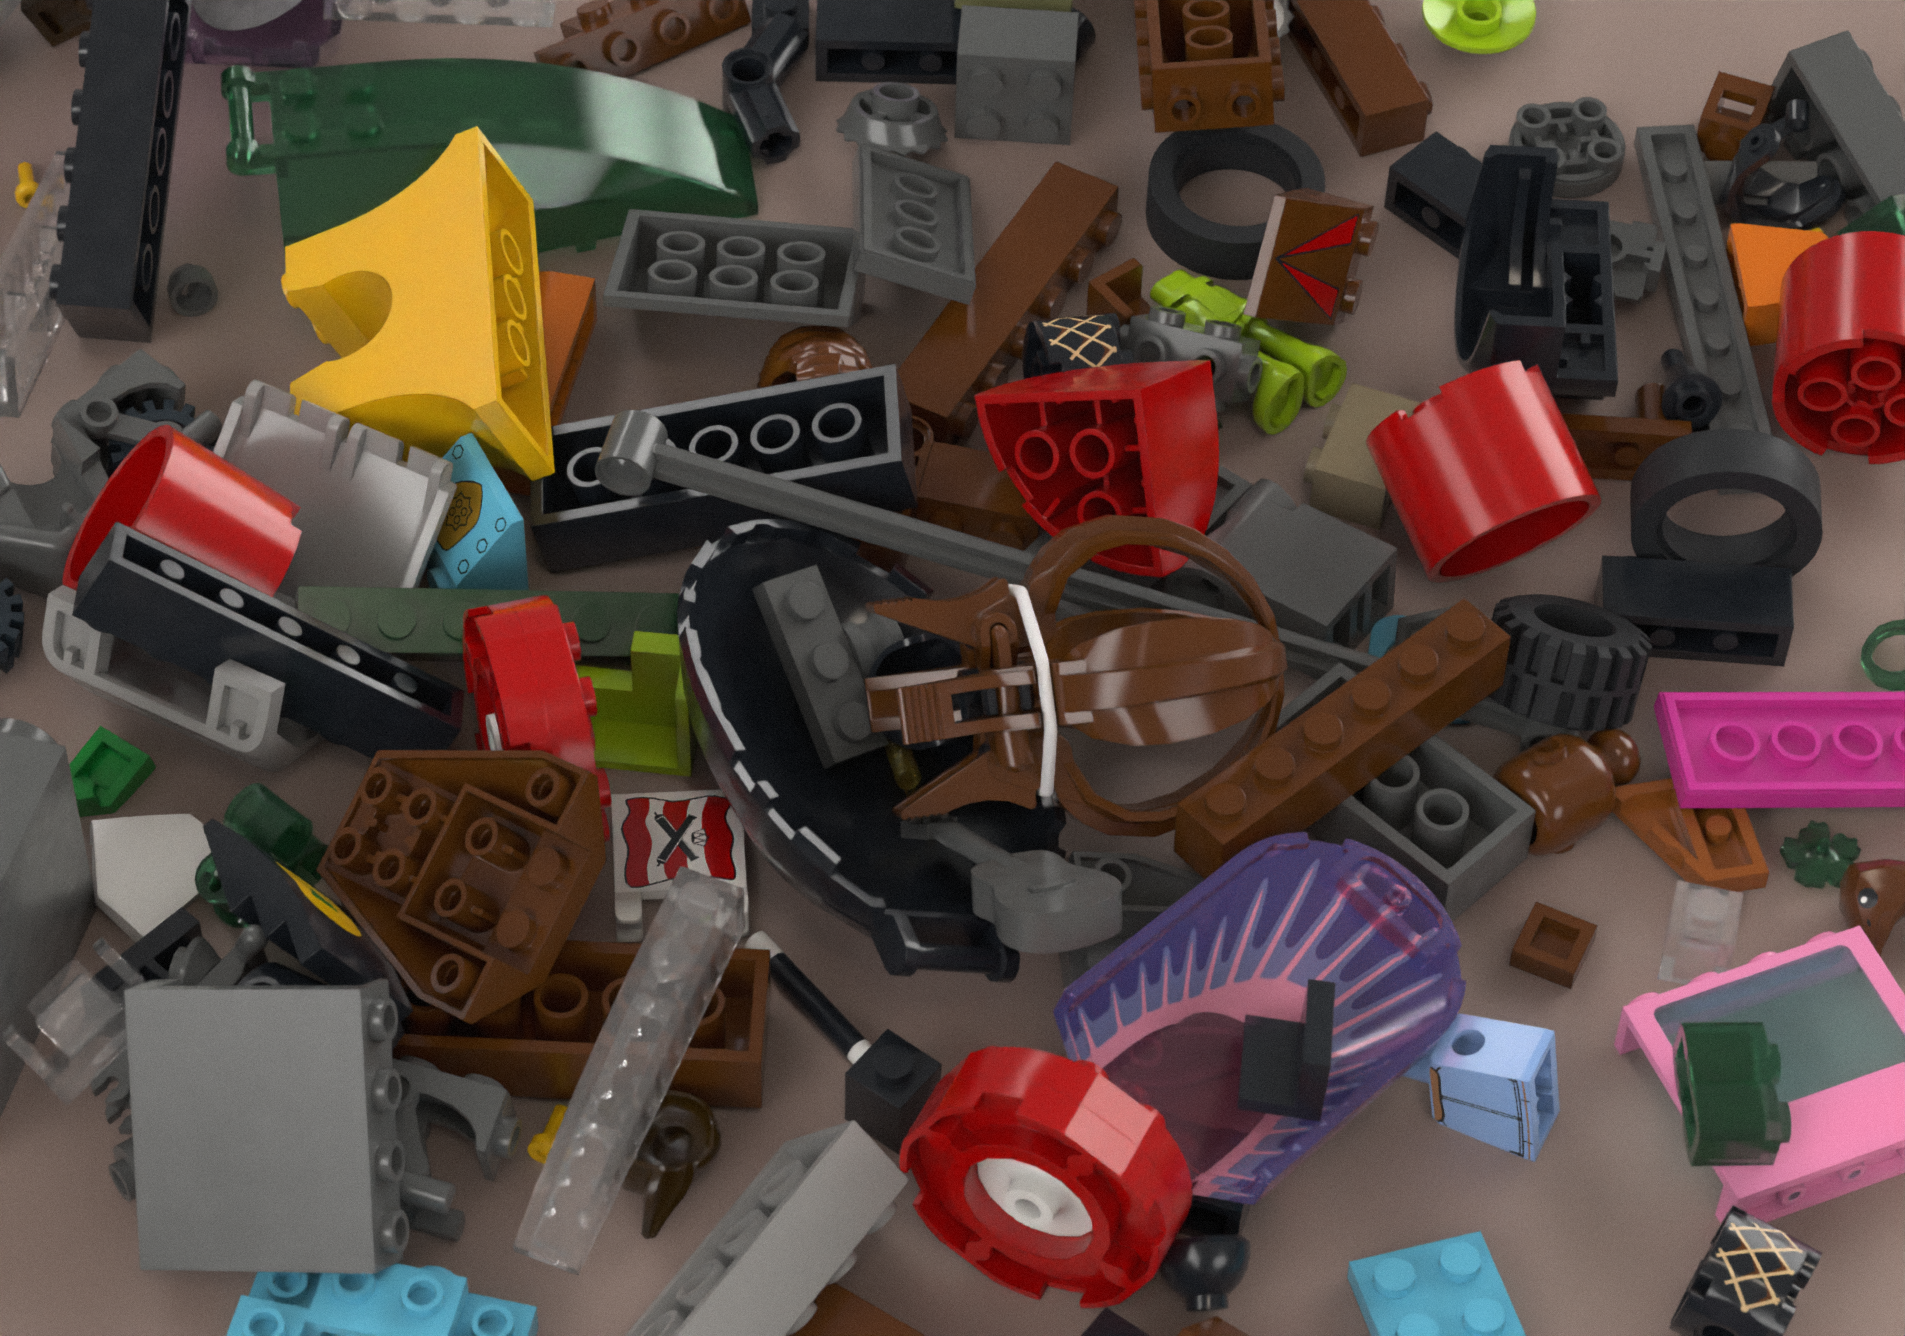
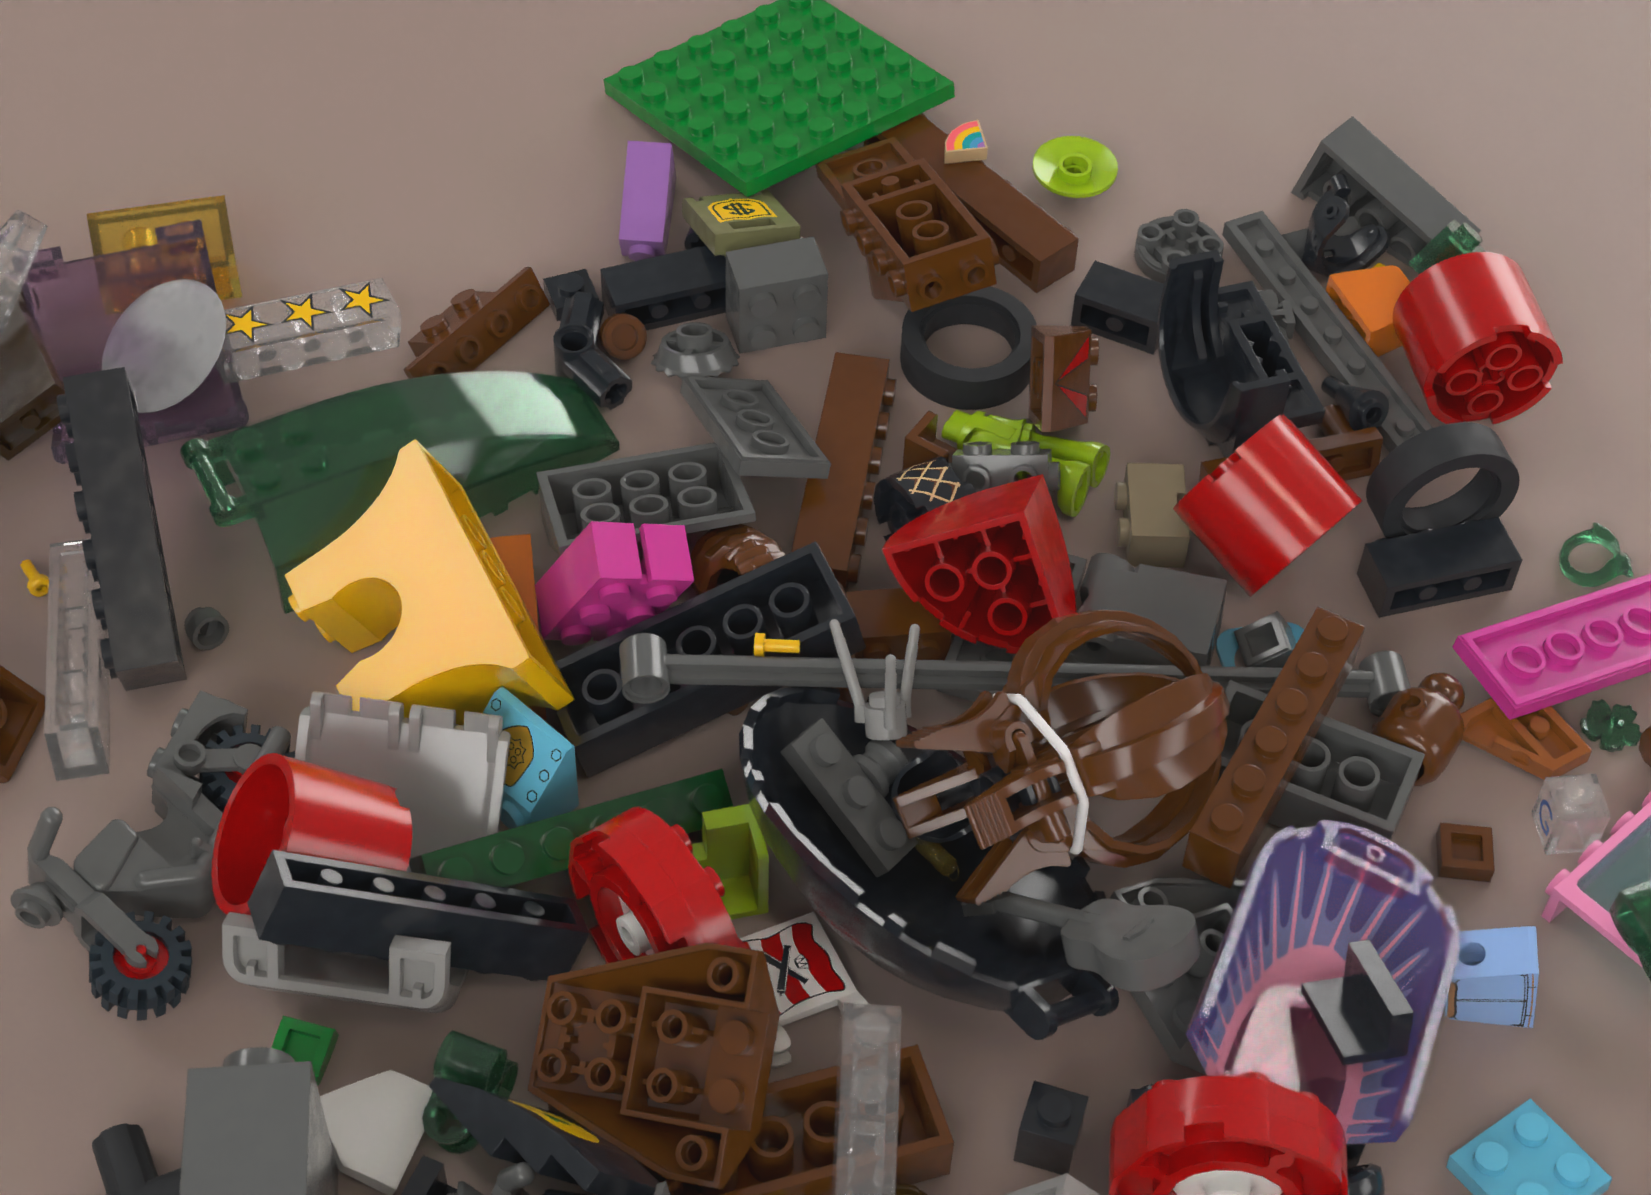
camera: 20 degrees left, 0 degrees up
(624, 351) = (605, 587): none -> dark pink piece
(781, 464) = (764, 645): none -> yellow piece
(811, 999) = (969, 1082): black bar -> none
(815, 80) = (622, 336): none -> reddish brown tile
(898, 573) = (887, 710): none -> light grey plant
(1570, 662) = (1401, 633): black tyre -> none
(1722, 127) = (1287, 211): reddish brown brick -> none

